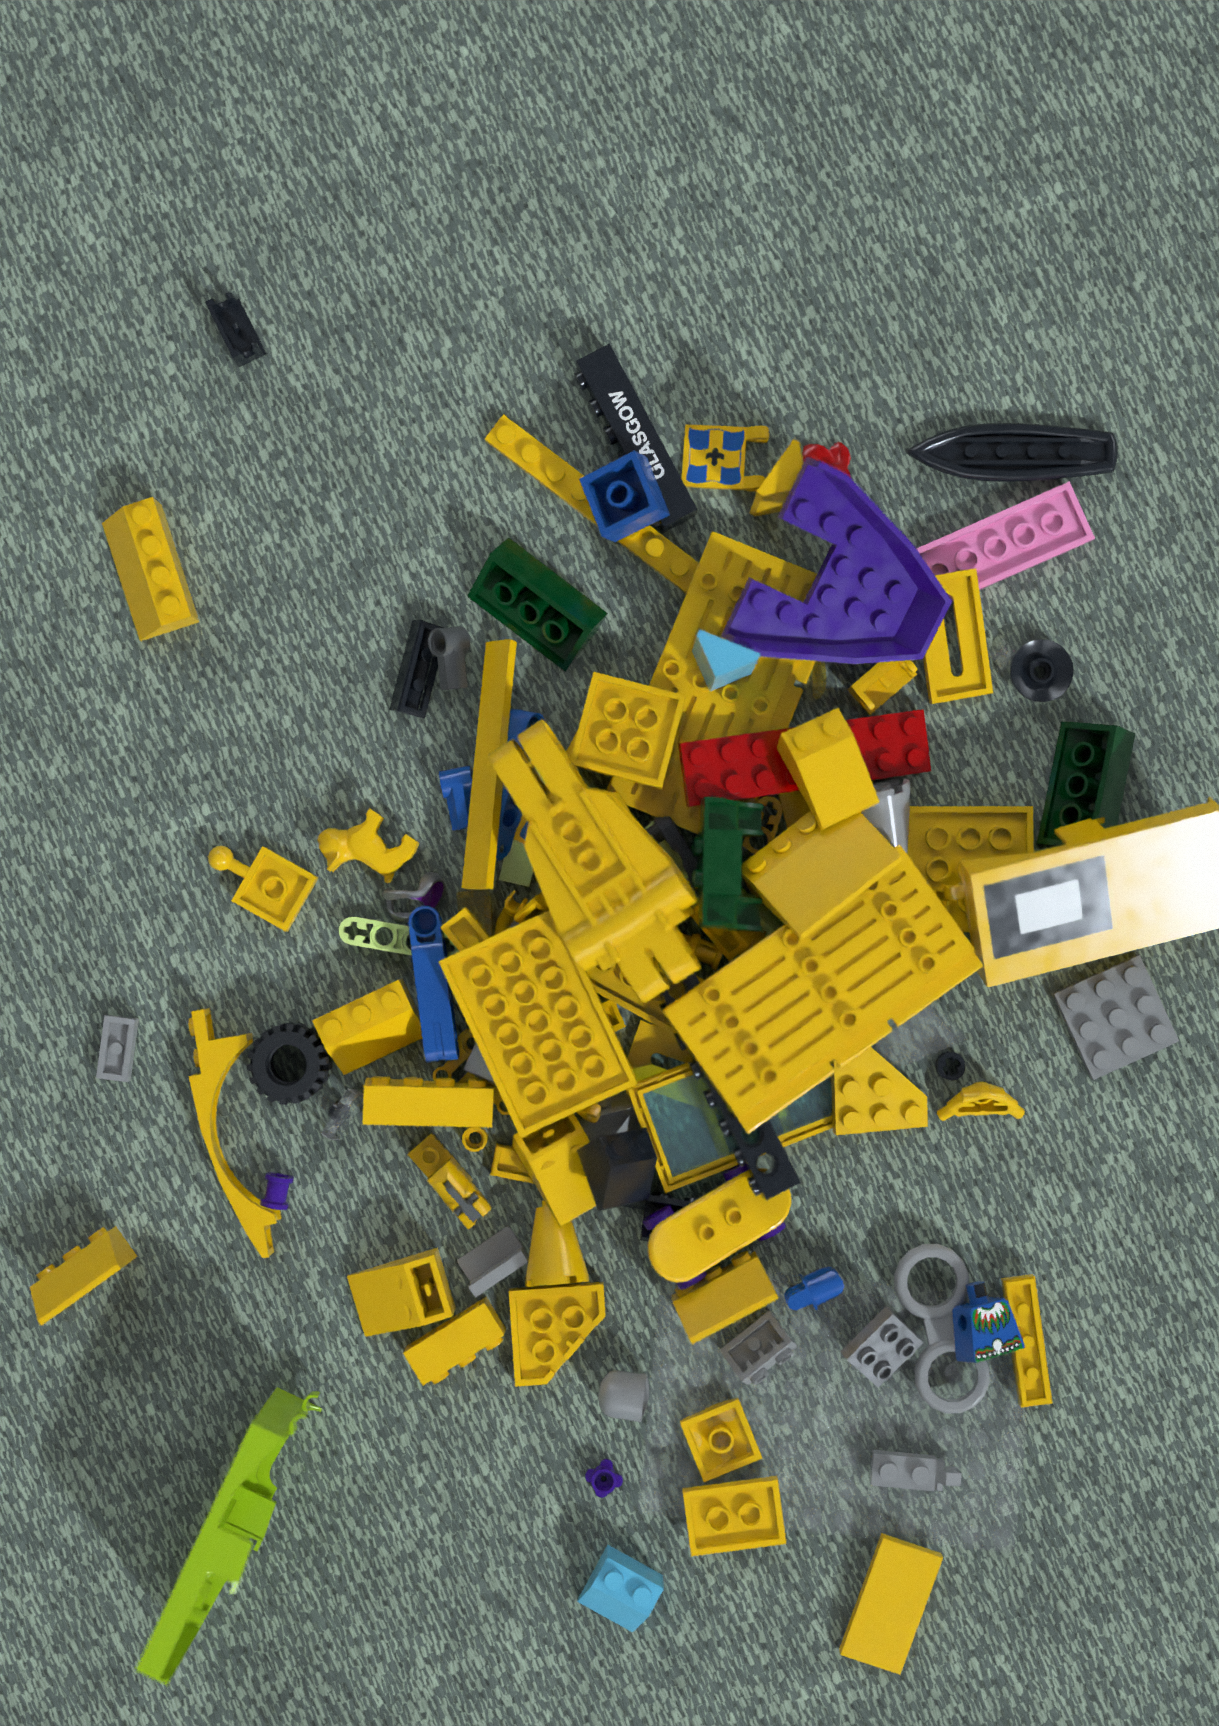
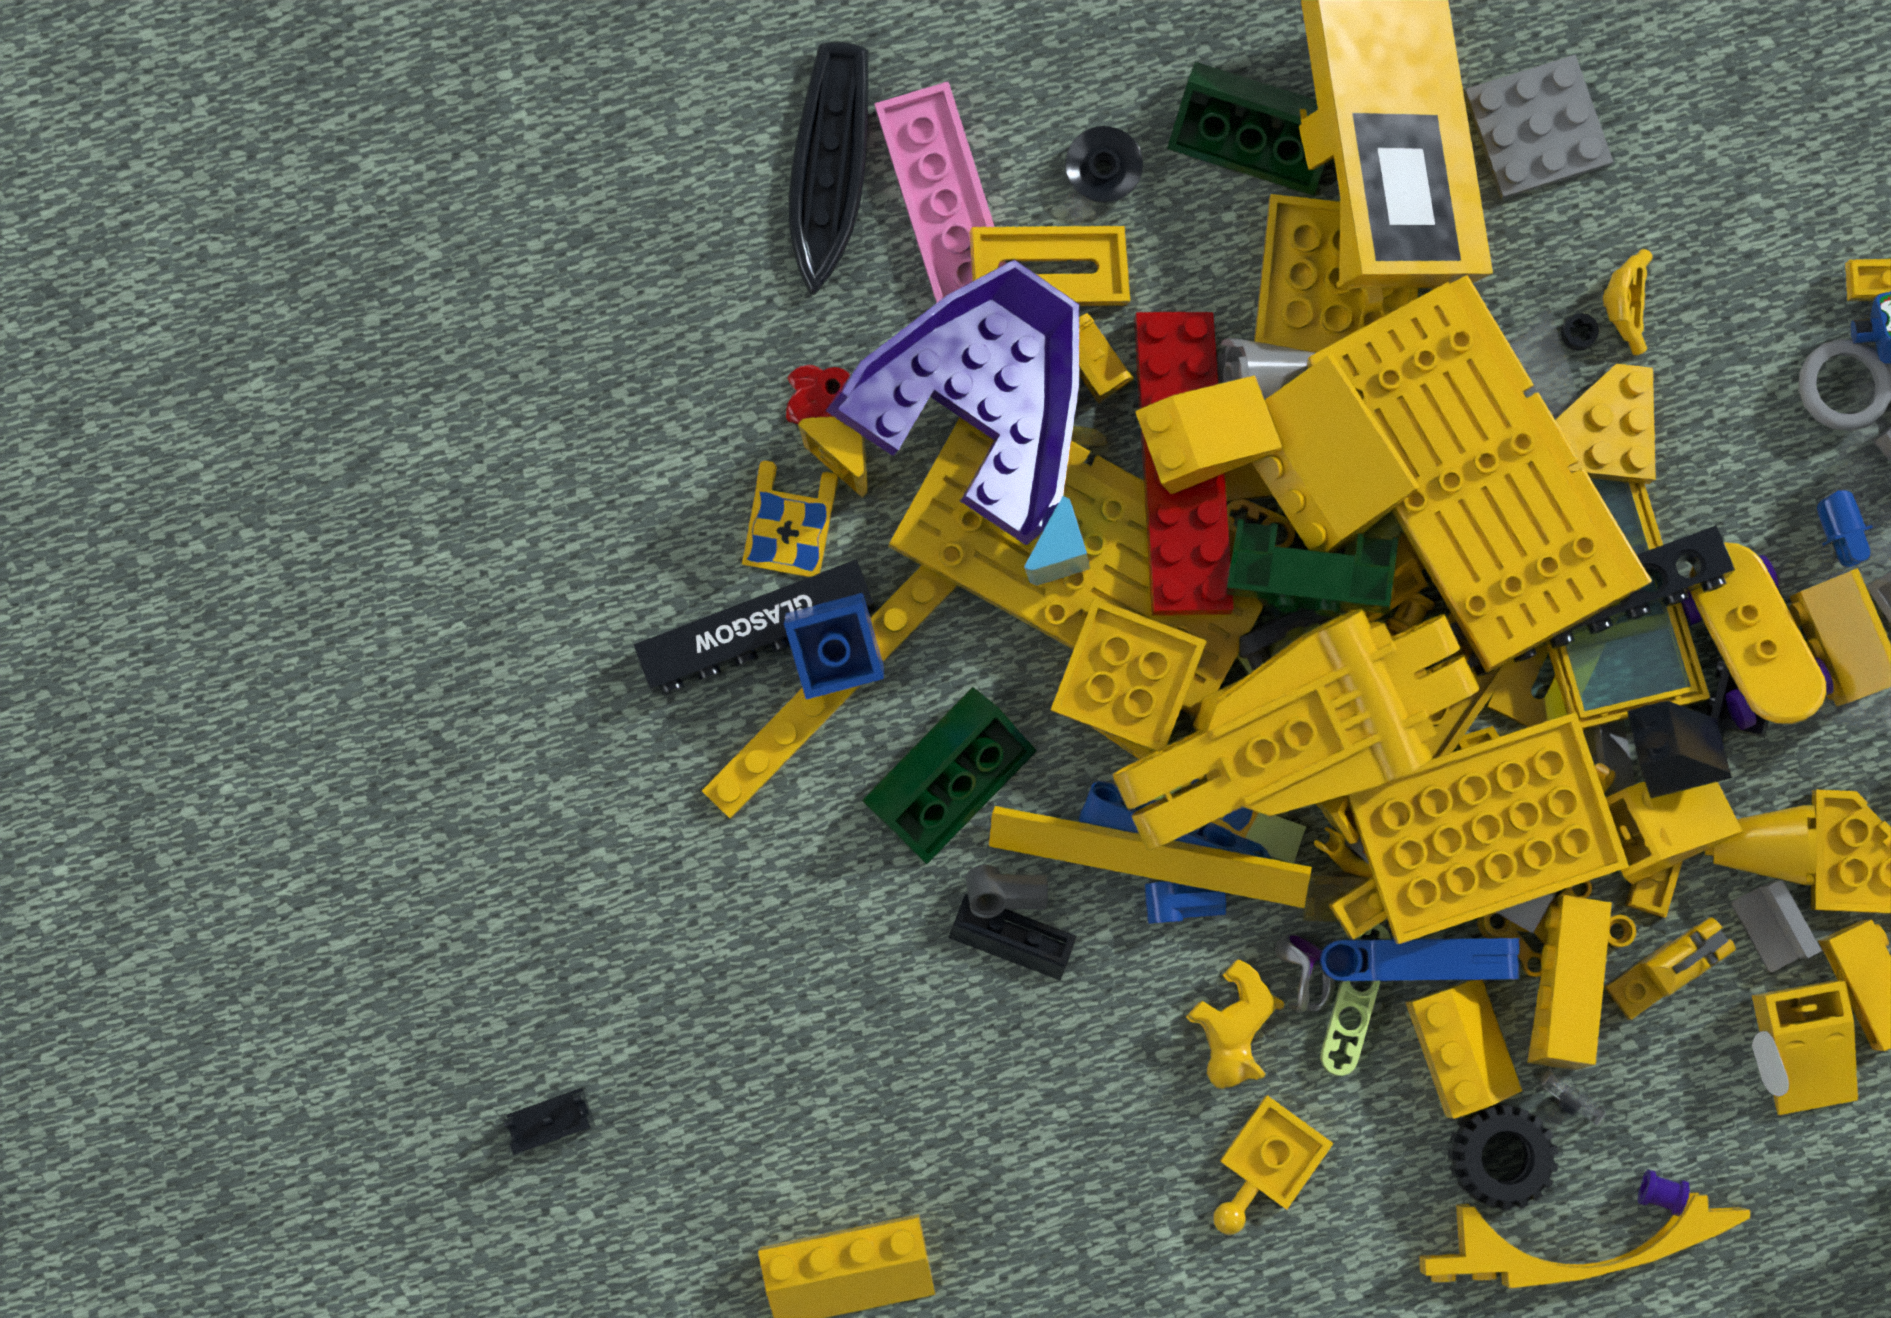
camera: 85 degrees left, 5 degrees down
(383, 1264) = (1770, 1064): none -> white sticker

